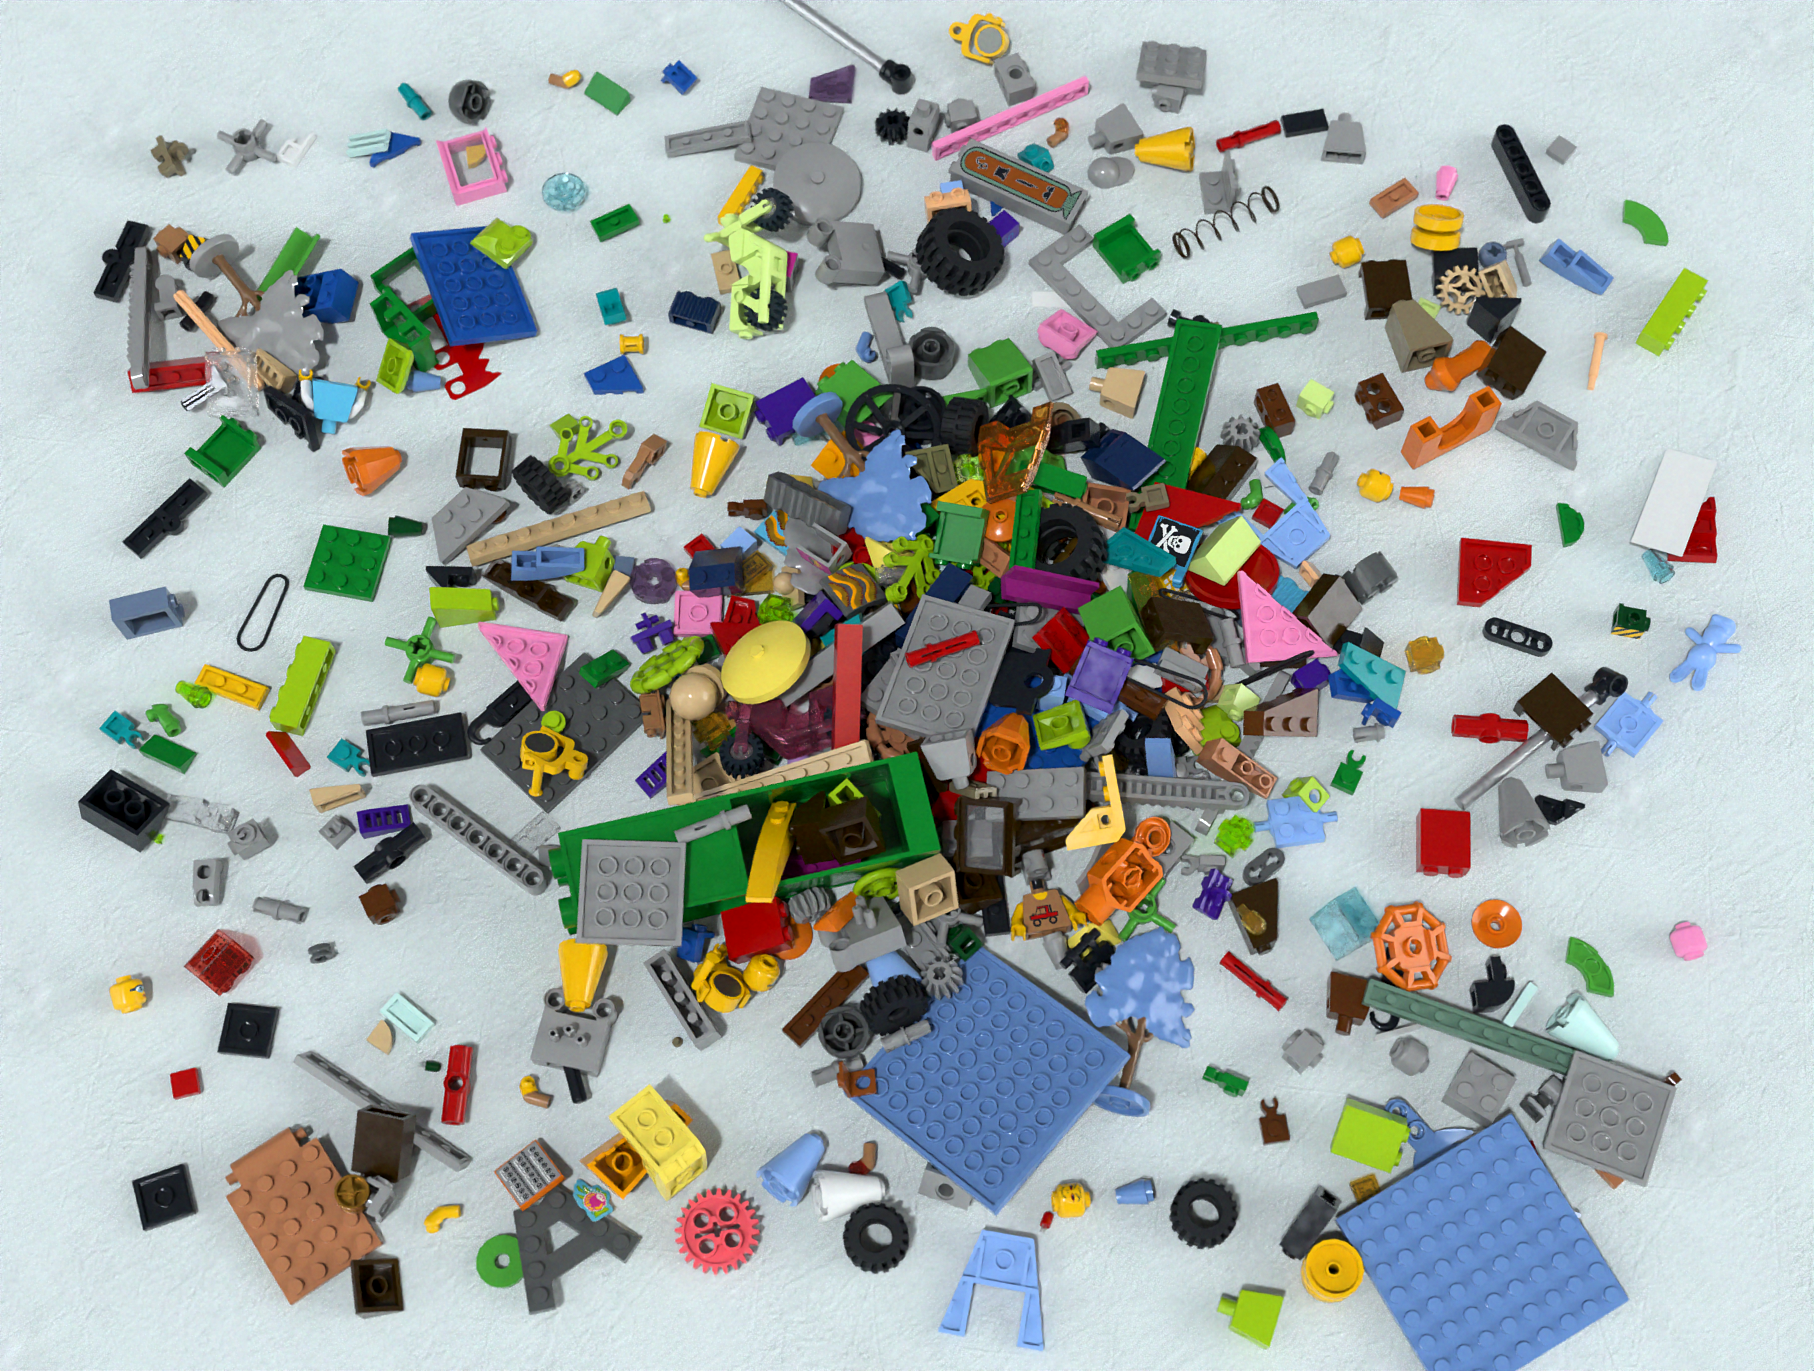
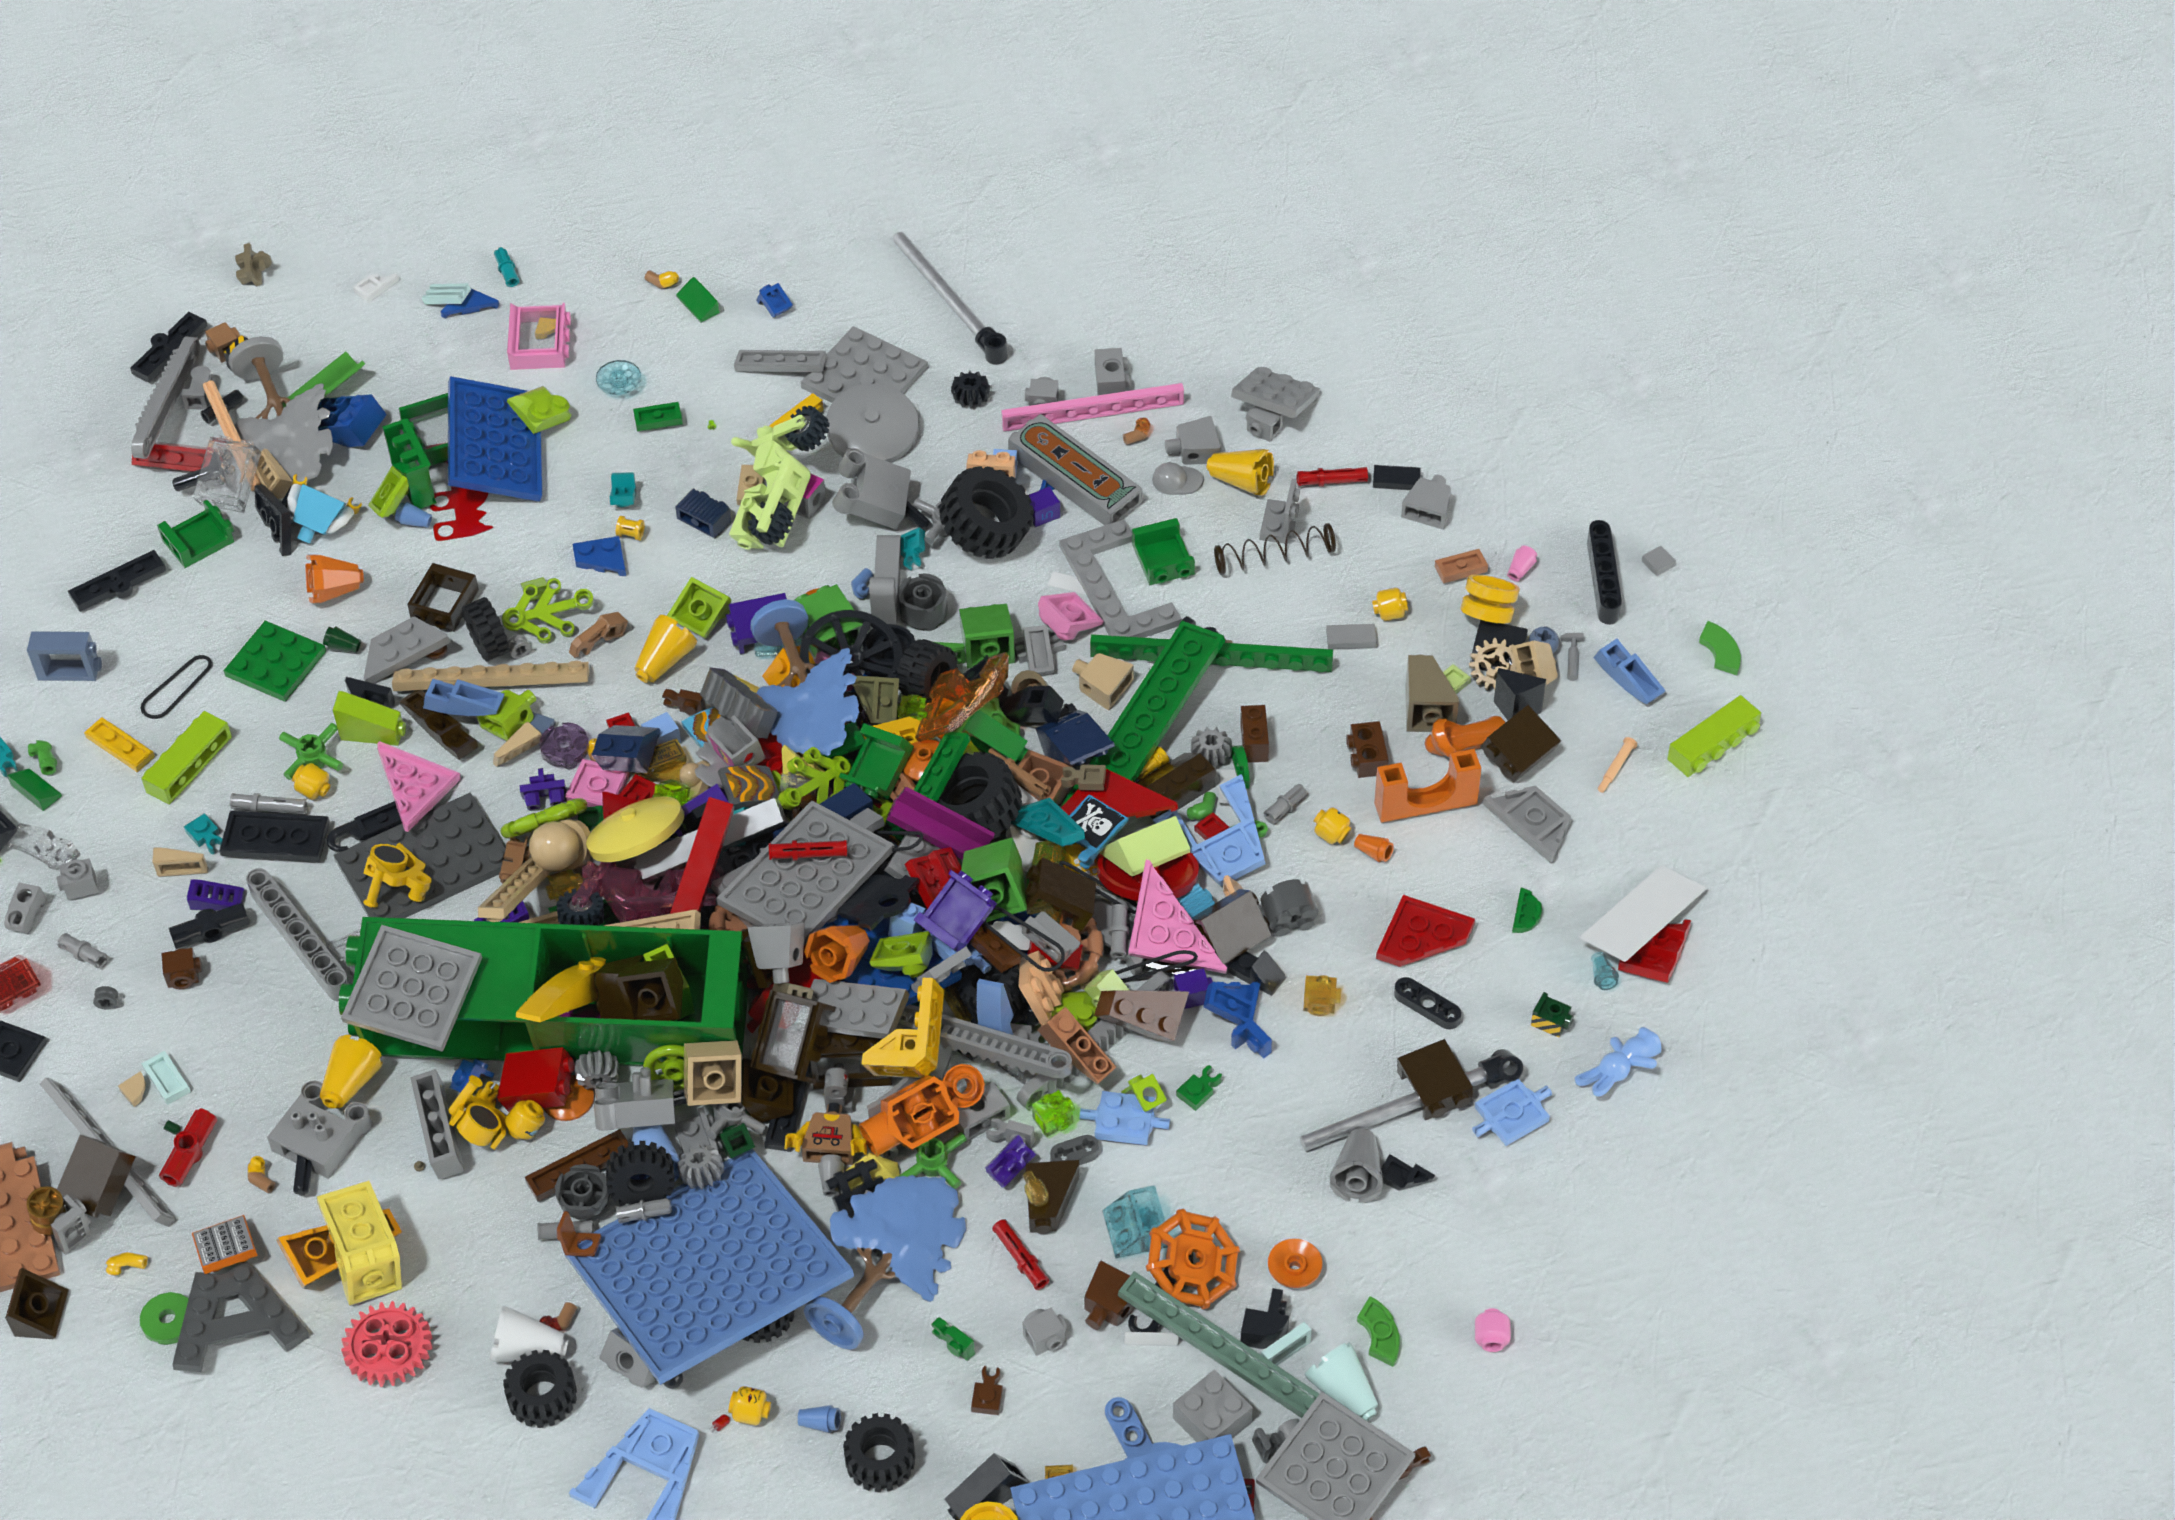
camera: 15 degrees right, 15 degrees down
(195, 694) = (81, 741): clear neon green cone -> none
(246, 146) = (328, 271): light grey bar -> none
(288, 752) = (149, 813): red slope -> none
(336, 832) = (166, 896): light grey tile -> none
(469, 101) = (558, 277): dark grey cylinder -> none
(554, 720) = (414, 843): lime plate -> none
(592, 1200) = (277, 1286): sticker -> none
(604, 668) = (482, 809): green plate -> none
(713, 824) = (515, 945): light grey pin -> none
(792, 1169) = (480, 1304): light blue cone -> none
(833, 86) = (927, 341): clear purple wing -> none
(837, 915) = (615, 1079): orange slope -> none
(924, 117) = (1000, 392): light grey torso -> none
(989, 40) = (1096, 330): yellow piece -> none
(1037, 157) = (1106, 449): teal bracket -> none
(1315, 399) = (1302, 733): yellowish green brick -> none
(1369, 733) = (1234, 1054): light grey pin -> none
(1369, 1135) = (1078, 1422): lime brick -> none
(1375, 674) = (1257, 996): teal wing -> none
(1384, 285) = (1415, 637): dark brown panel -> none
(1409, 1056) = (1153, 1363): light grey head -> none
(1443, 842) = (1269, 1173): red brick -> none
(1489, 728) = (1361, 1079): red piece -> none
(1580, 769) = (1441, 1139): light grey torso -> none

